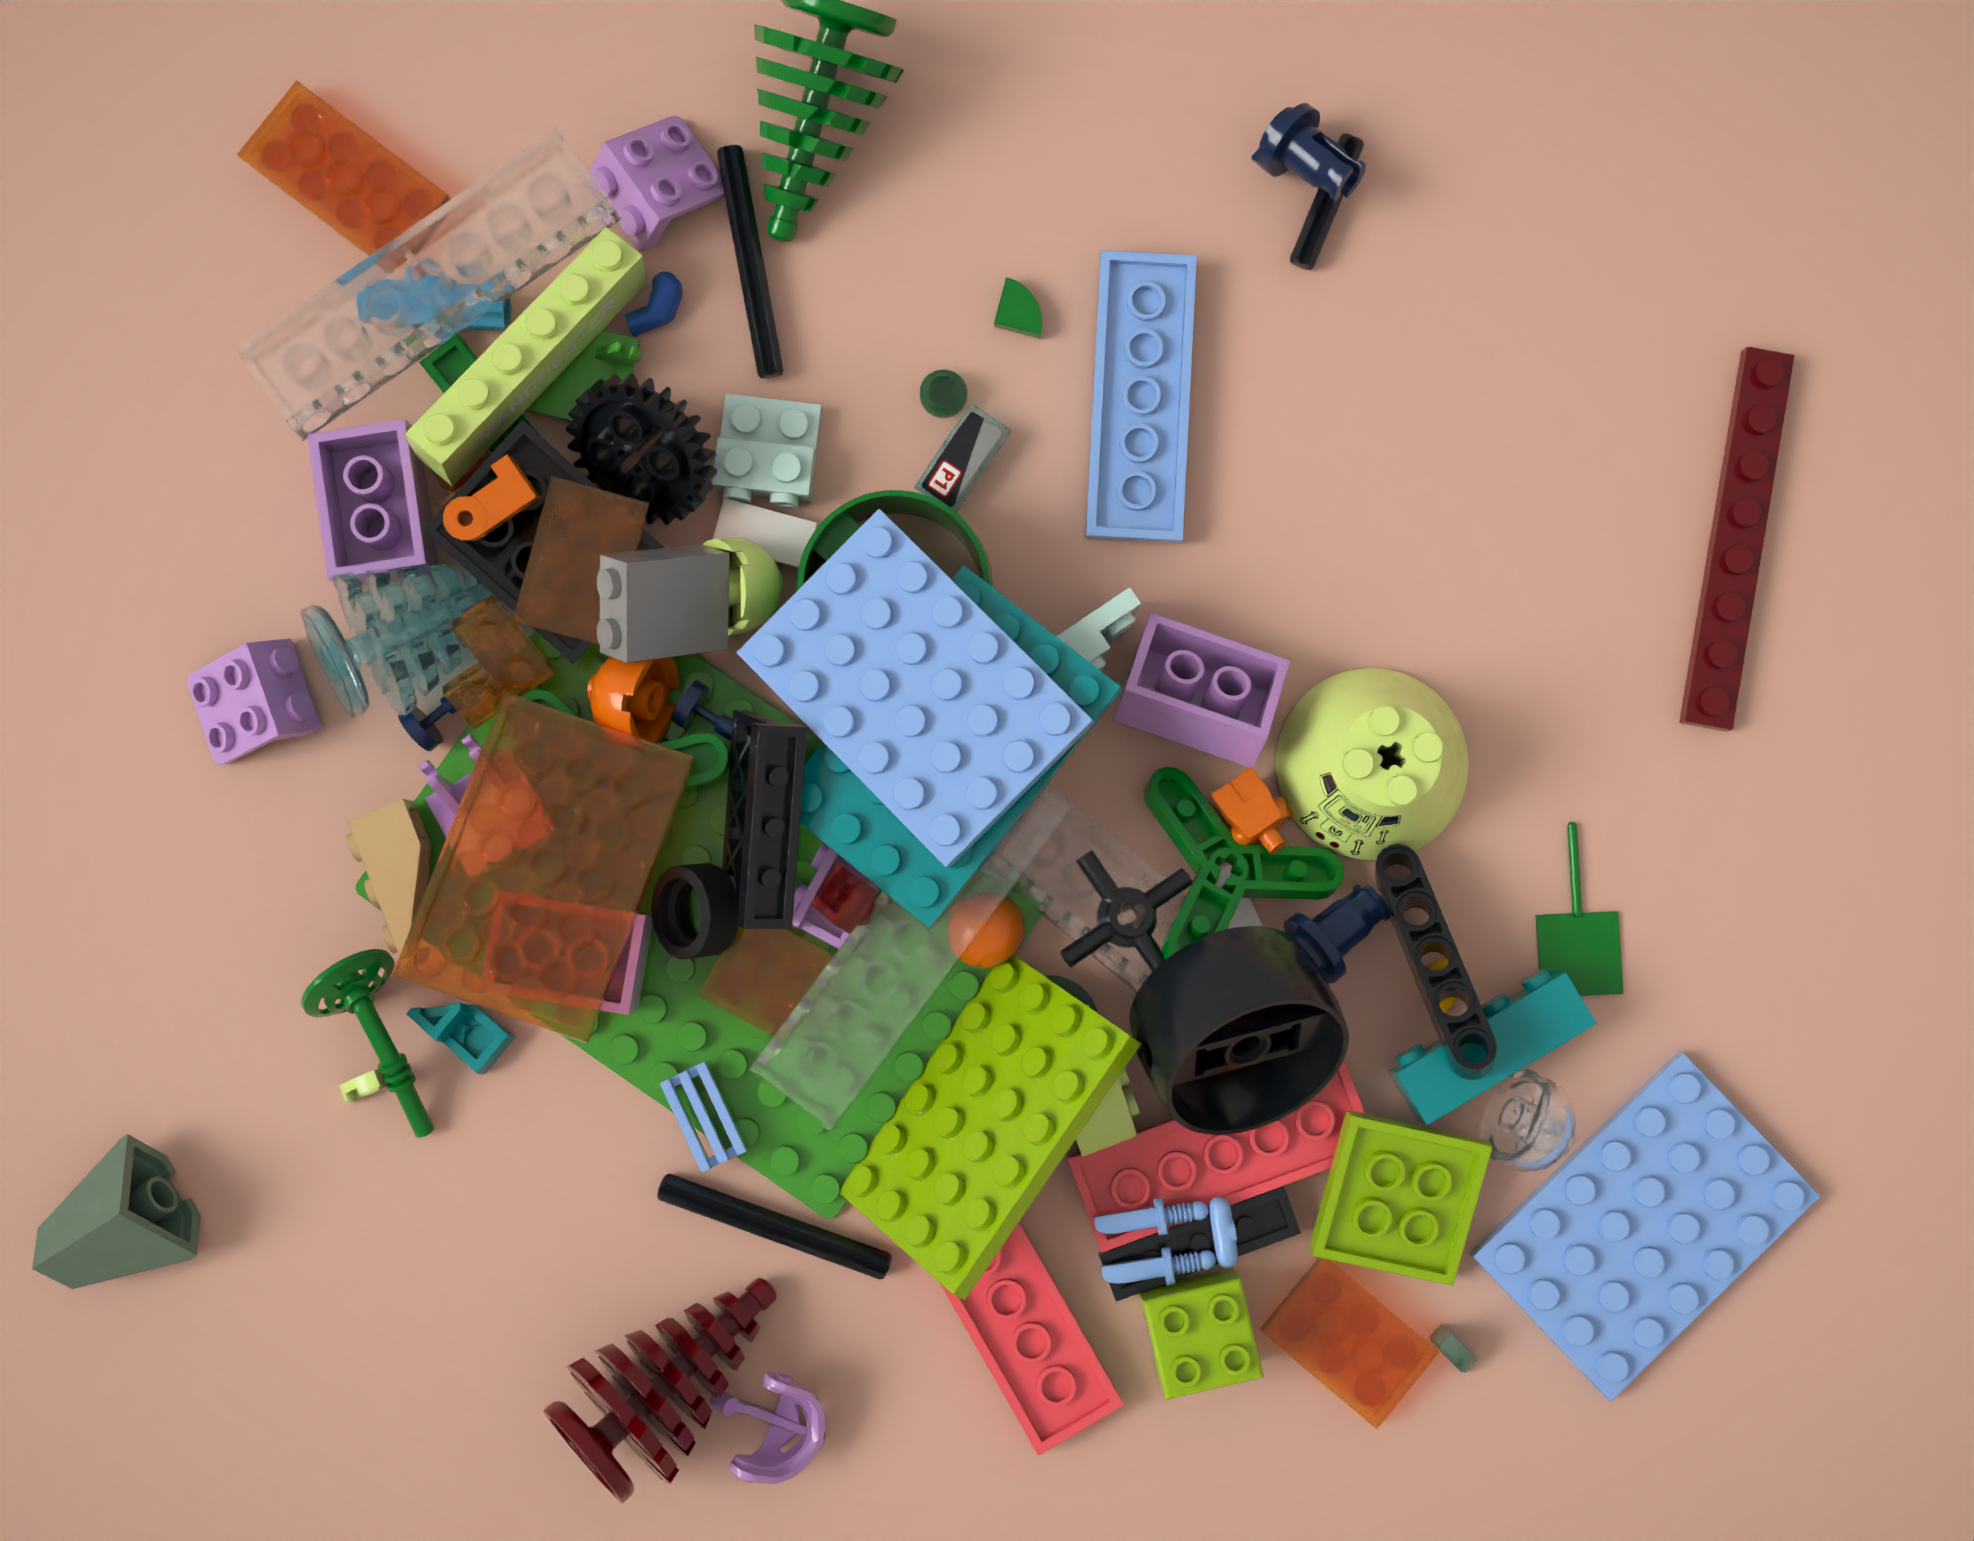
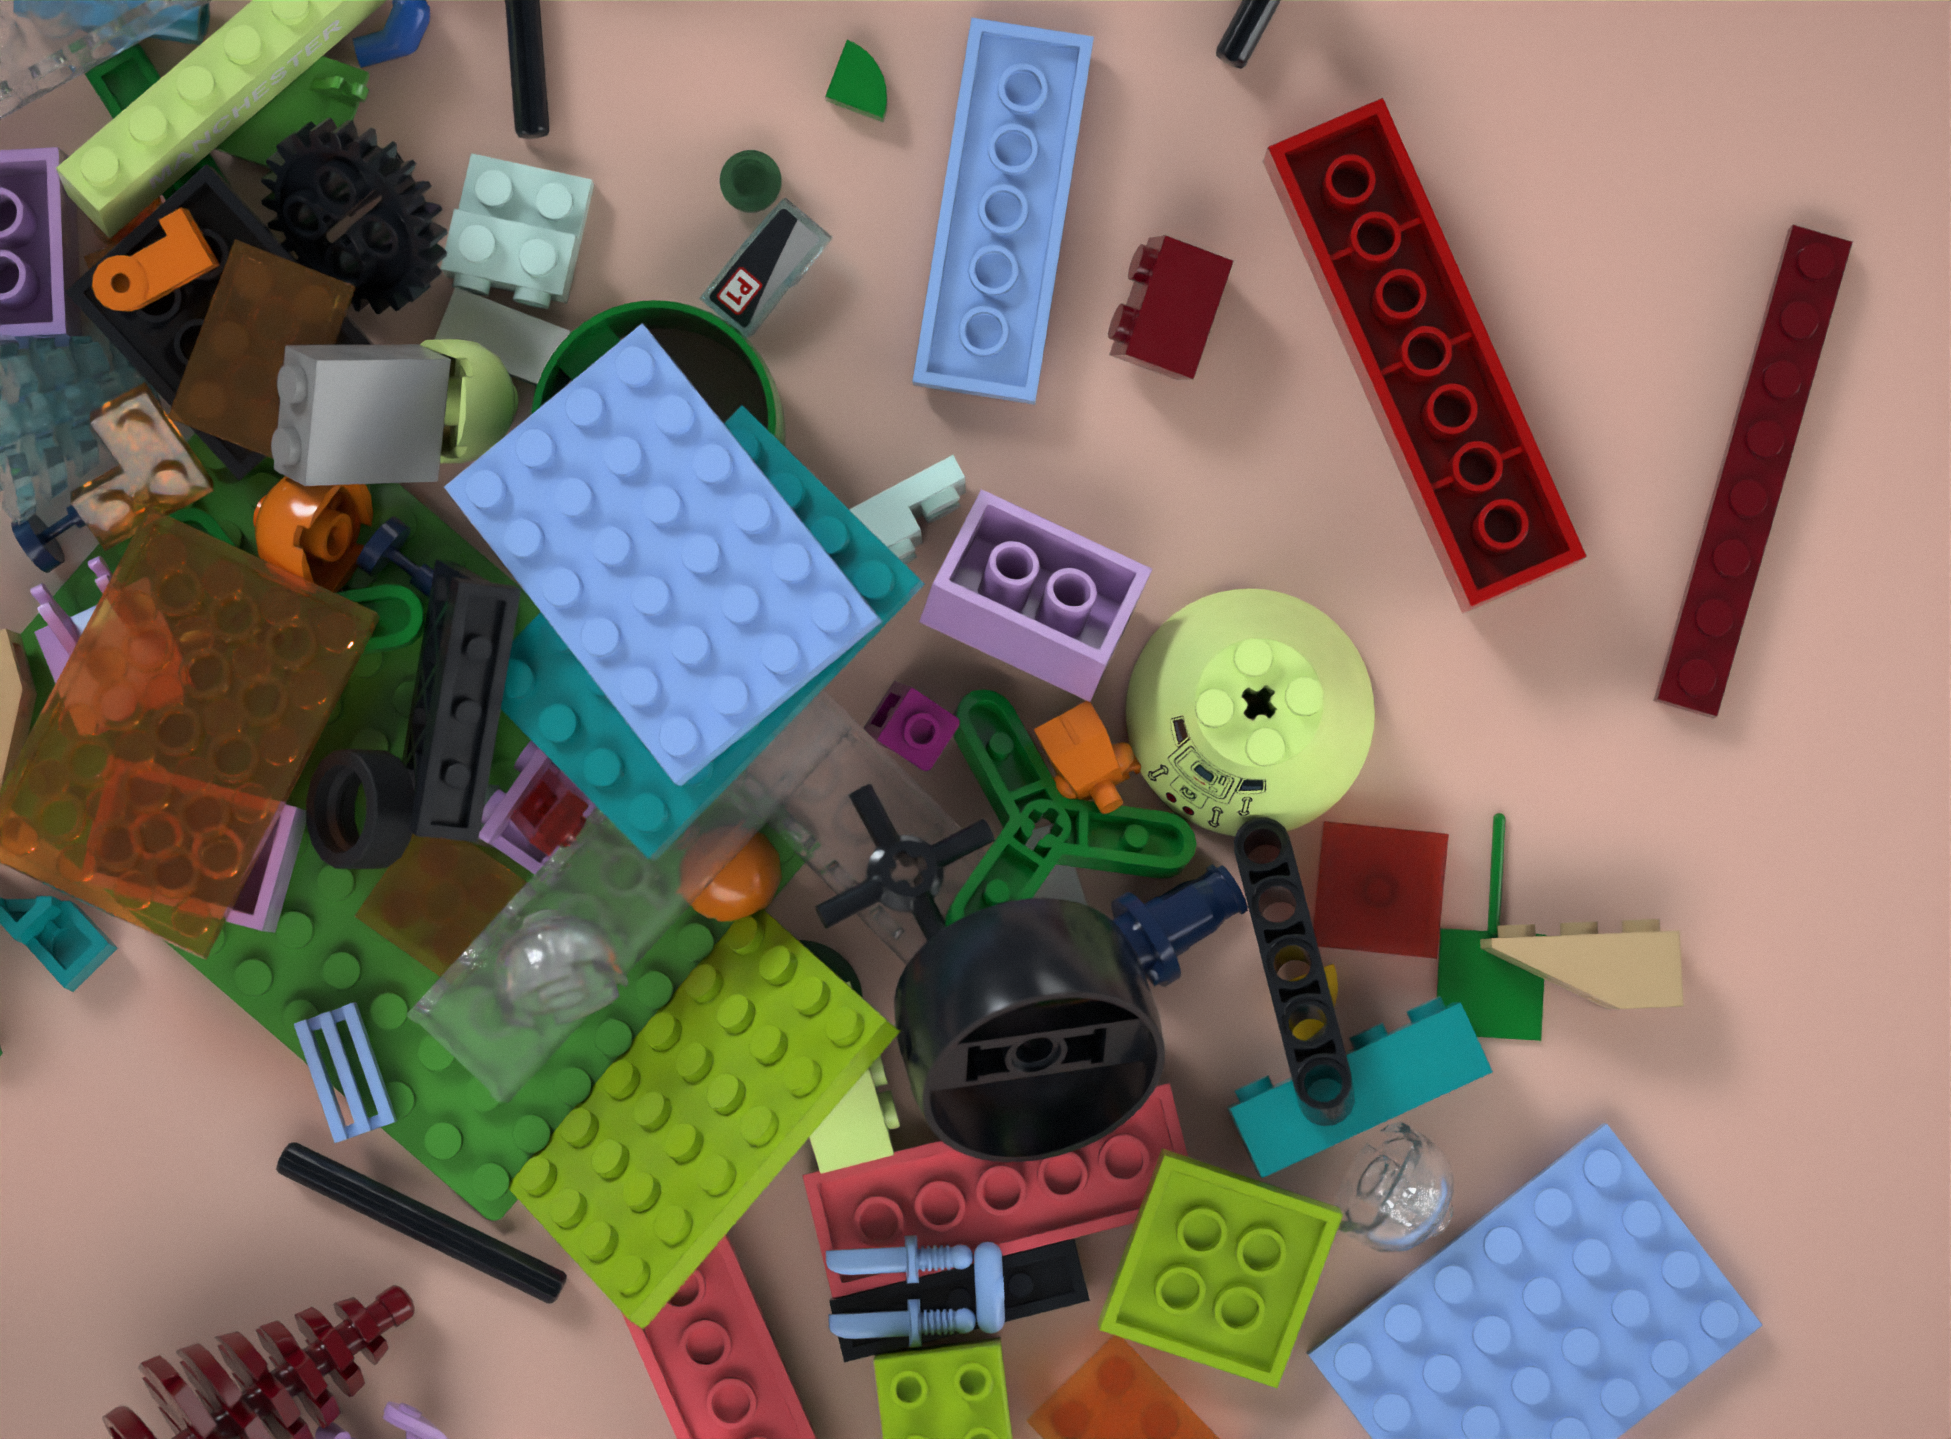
camera: 15 degrees right, 0 degrees up
(865, 1021) = (557, 969): none -> clear cylinder
(1115, 800) = (911, 725): none -> magenta bracket
(1278, 457) = (1169, 307): none -> dark red brick
(1478, 475) = (1423, 355): none -> red brick
(1489, 889) = (1379, 889): none -> clear red plate
(1677, 934) = (1608, 969): none -> tan slope

